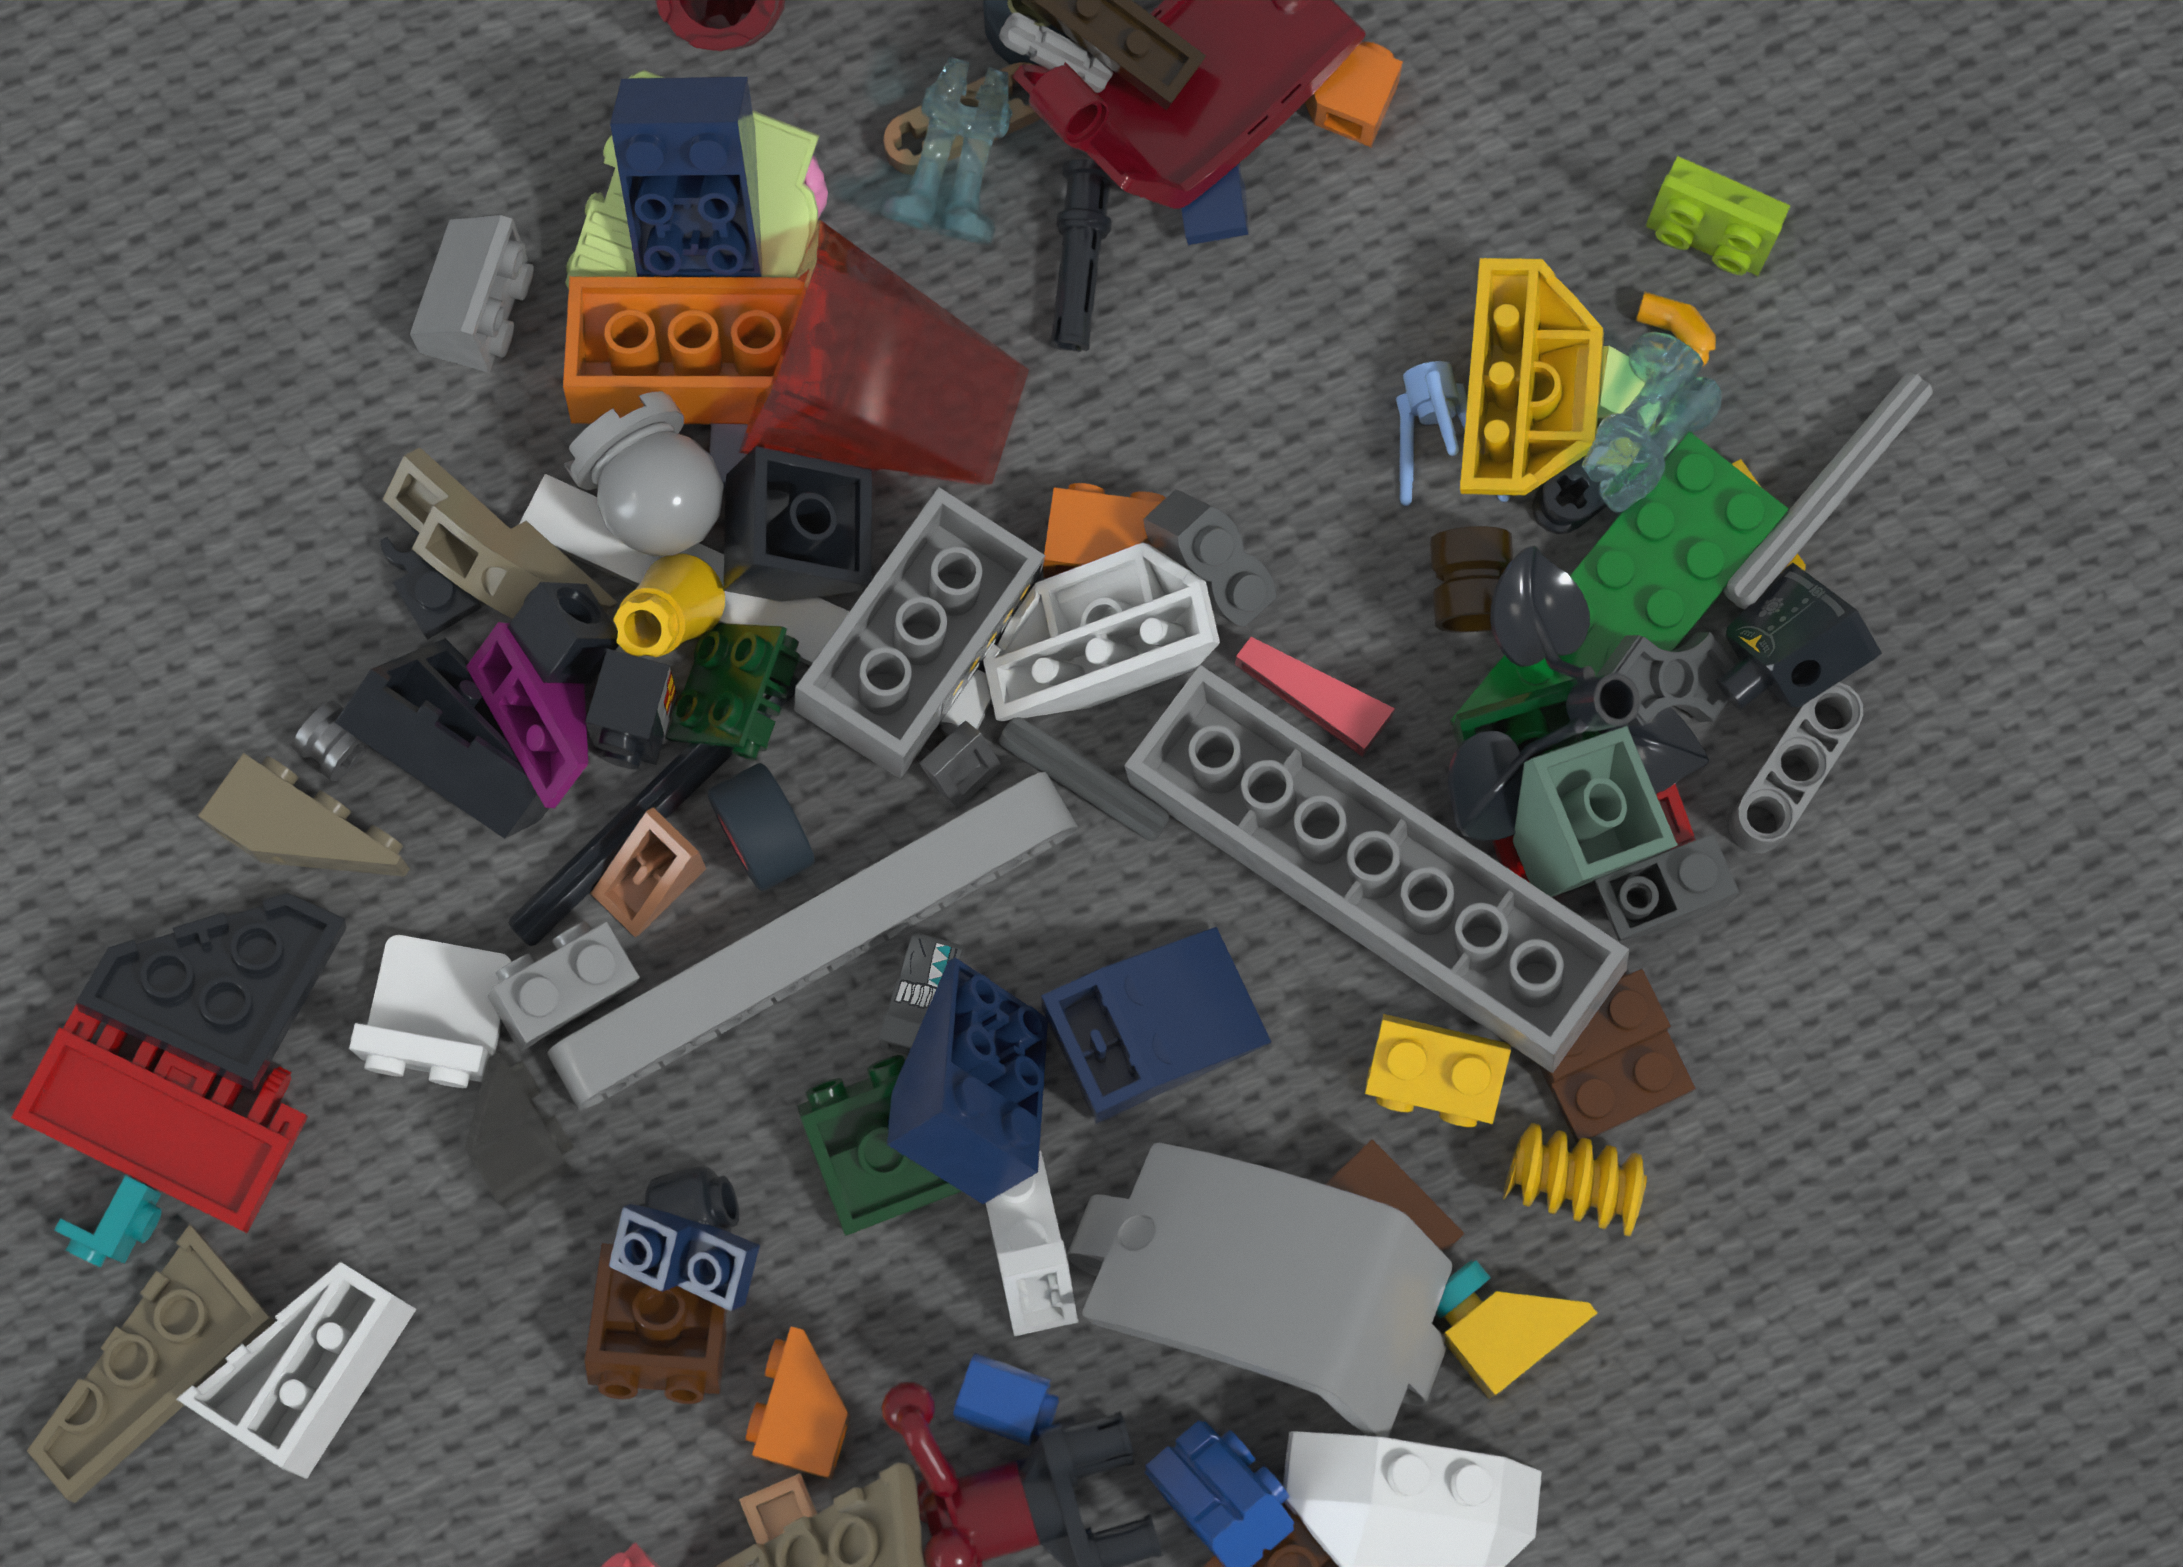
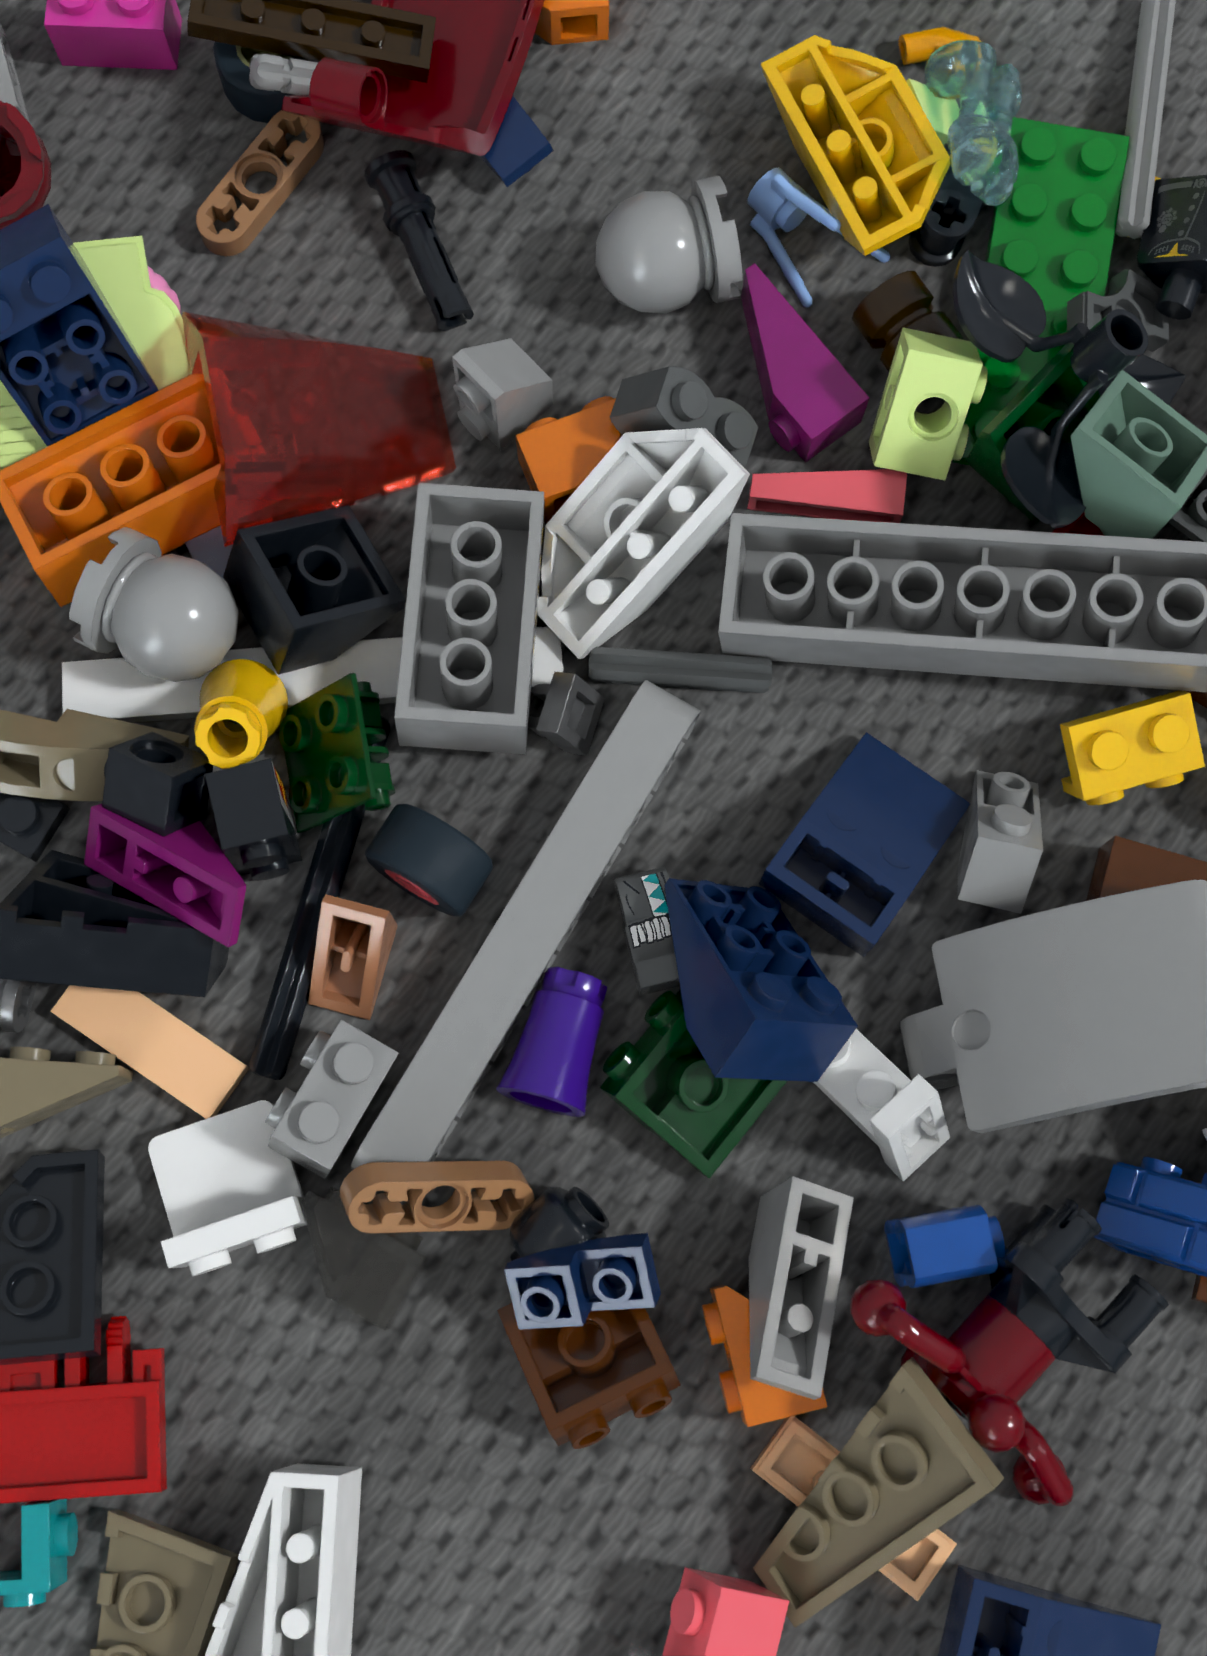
camera: 30 degrees left, 0 degrees up
(441, 856) = (154, 1045): none -> light nougat tile
(615, 1143) = (413, 1180): none -> medium nougat beam
(781, 1047) = (557, 1044): none -> dark purple plant
(860, 1358) = (795, 1283): none -> light grey slope
(947, 119) = (275, 174): clear light blue piece -> none
(1066, 437) = (499, 390): none -> light grey slope
(1274, 1087) = (1000, 841): none -> light grey slope
(1290, 388) = (665, 249): none -> light grey tile
(1347, 581) = (801, 381): none -> magenta slope
(1412, 681) = (922, 369): none -> yellowish green brick

